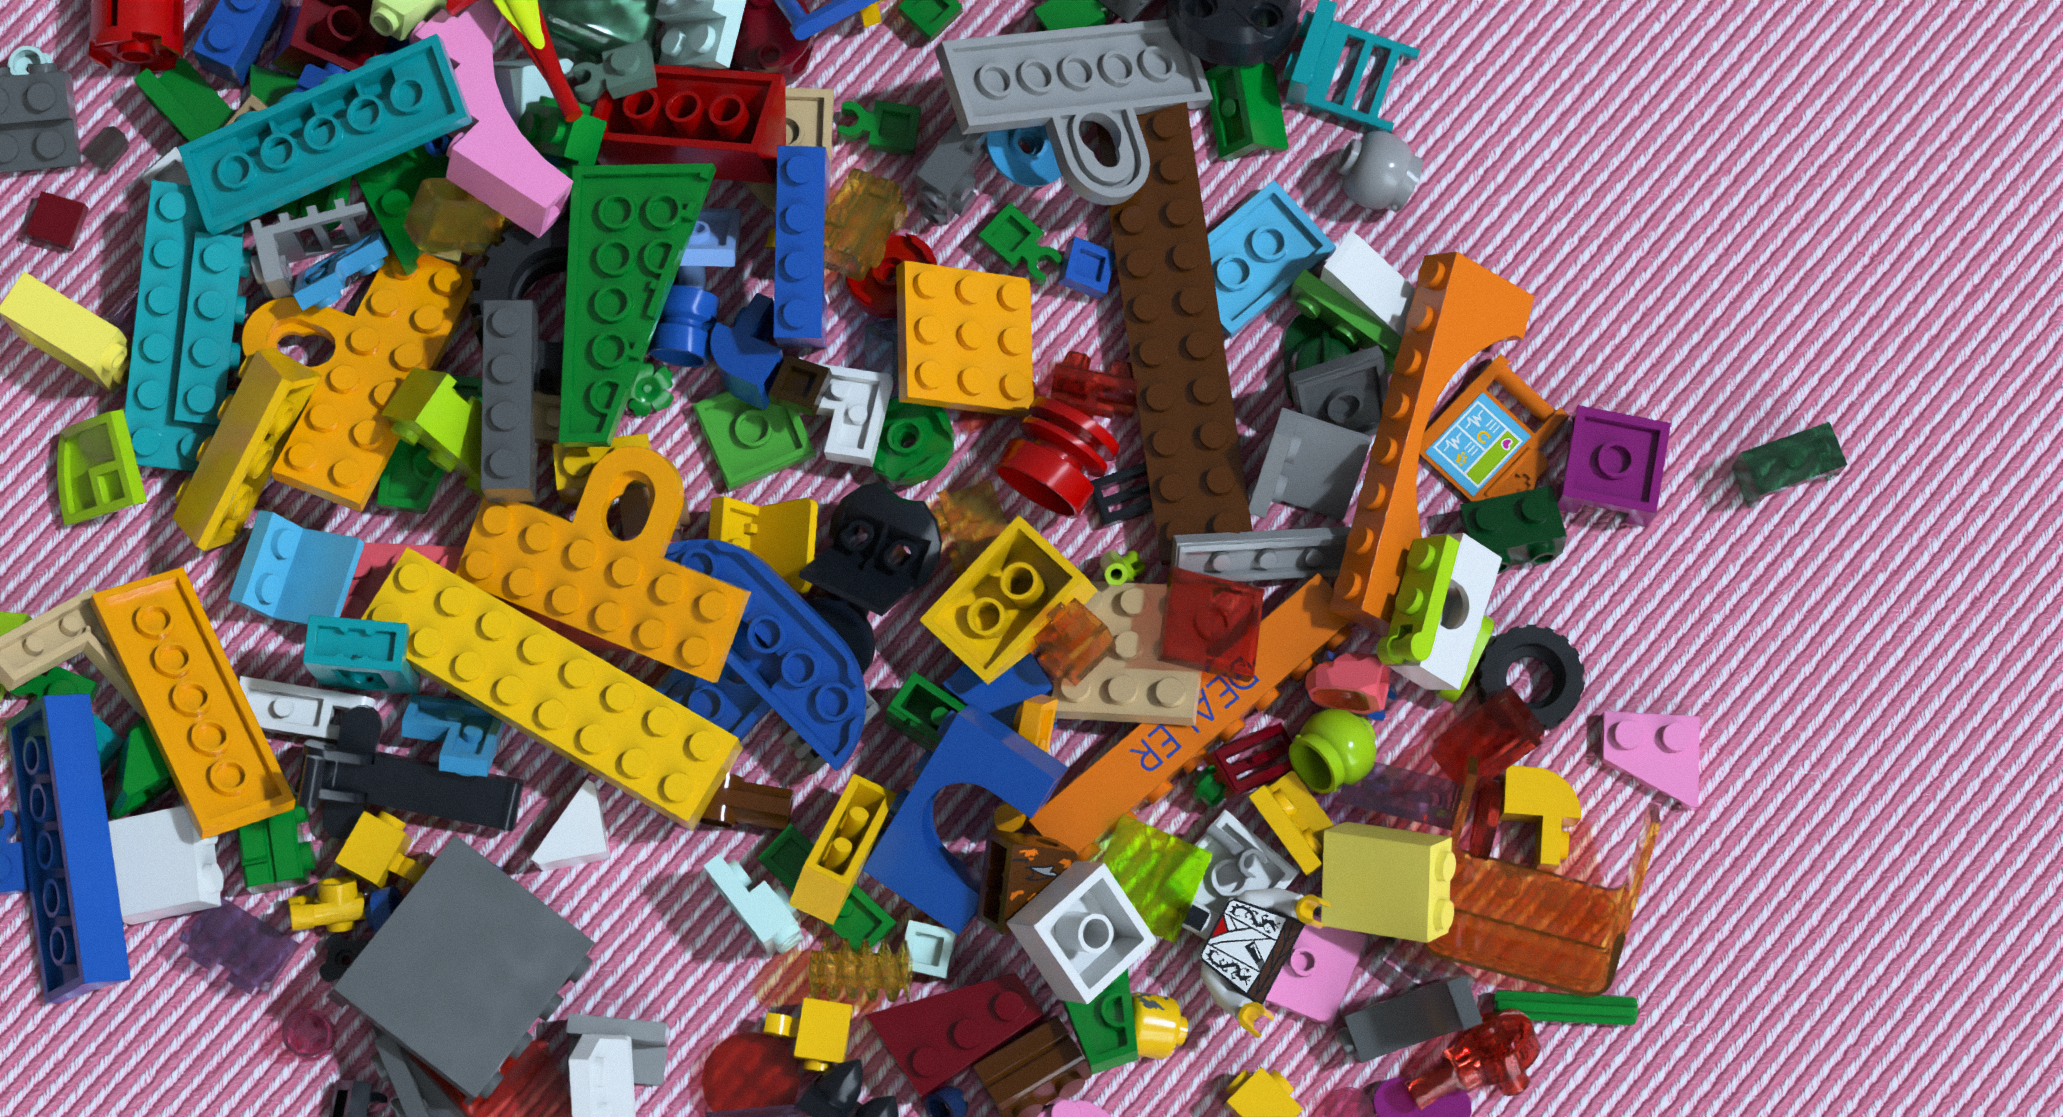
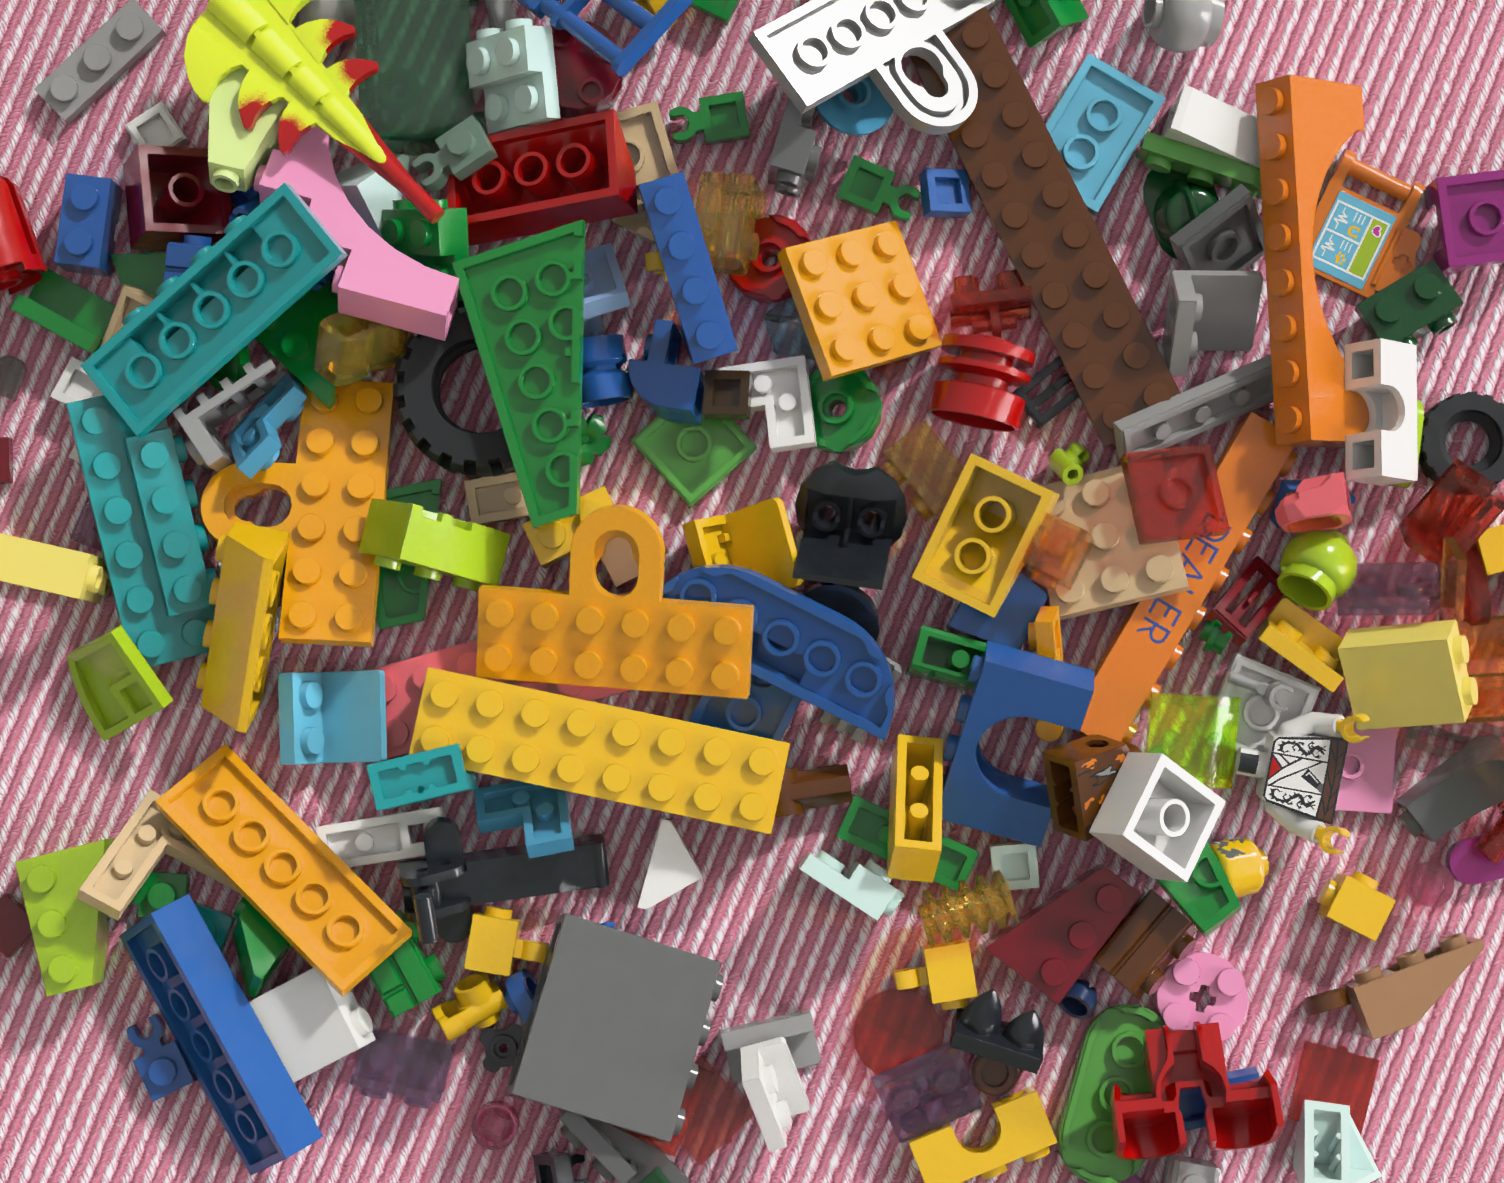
camera: 20 degrees left, 10 degrees up
(507, 401) = (473, 503): dark grey arch -> none
(1419, 600) = (1360, 413): lime plate -> none

